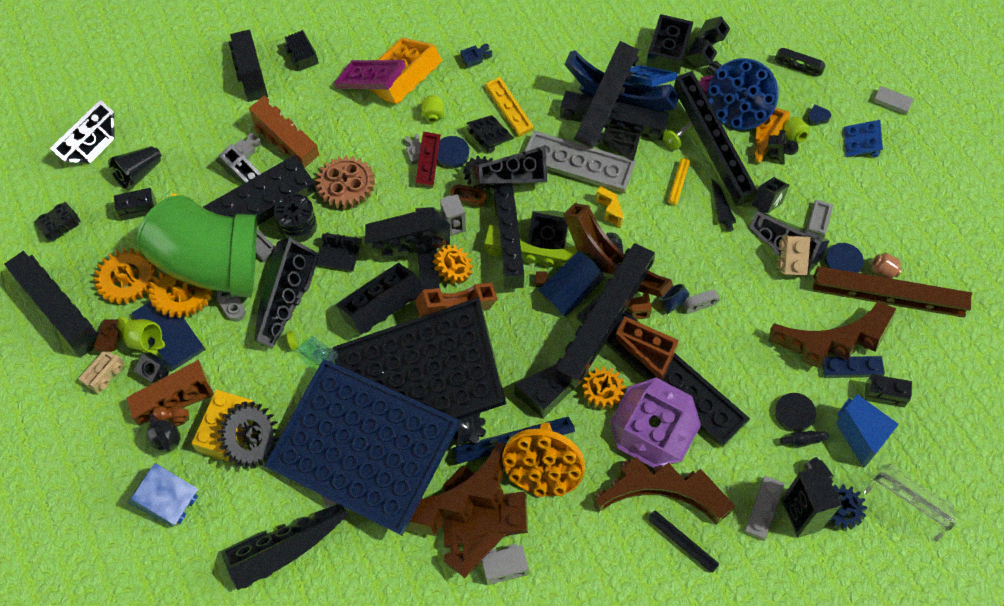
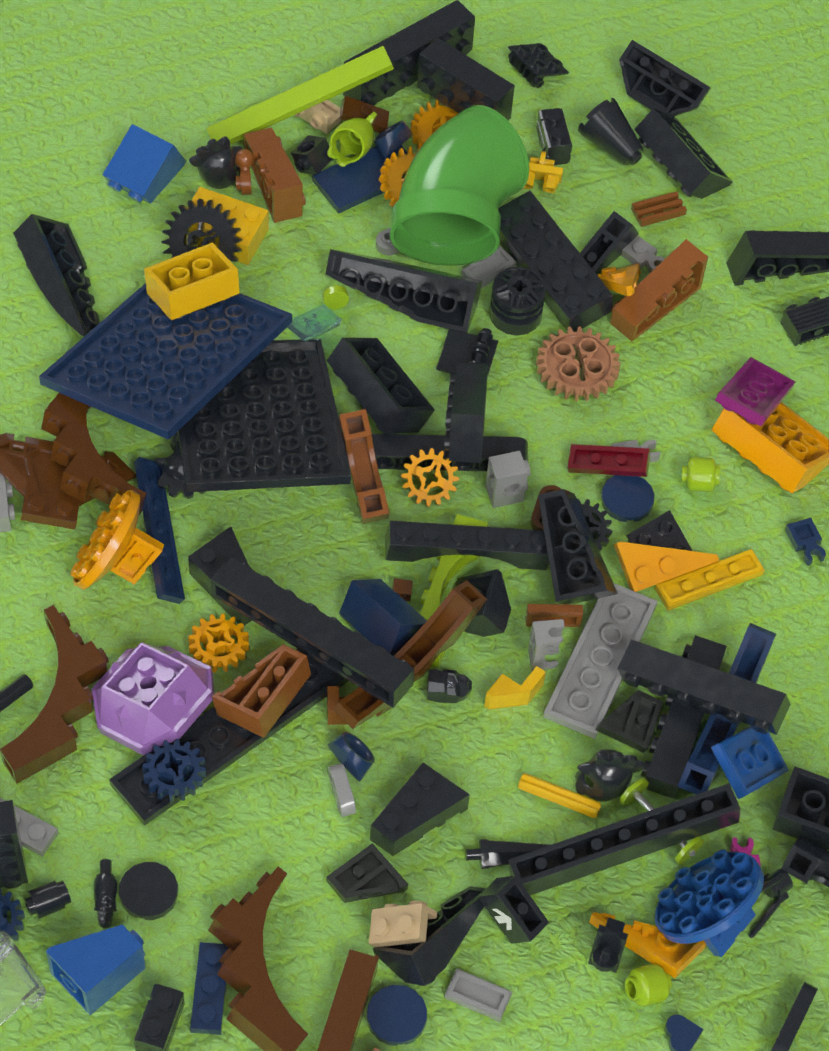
camera: 90 degrees right, 5 degrees down
(94, 256) = (462, 81): none -> black brick
(100, 376) = (303, 96): none -> lime tile
(136, 309) = (392, 138): none -> dark blue piece
(155, 124) = (681, 155): none -> black slope
(197, 129) = (657, 205): none -> dark orange tile
(278, 151) = (622, 279): none -> light orange wing
(297, 431) = (192, 281): none -> yellow brick
(507, 131) = (653, 564): none -> light orange wing
(552, 189) = (570, 614): none -> dark orange tile
(581, 187) = (544, 641): none -> light grey hinge
(666, 149) = (609, 772): none -> black piece
(709, 256) = (416, 809): none -> black wedge
(718, 391) = (165, 779): none -> dark blue gear
(758, 283) = (366, 877): none -> pearl dark grey wing

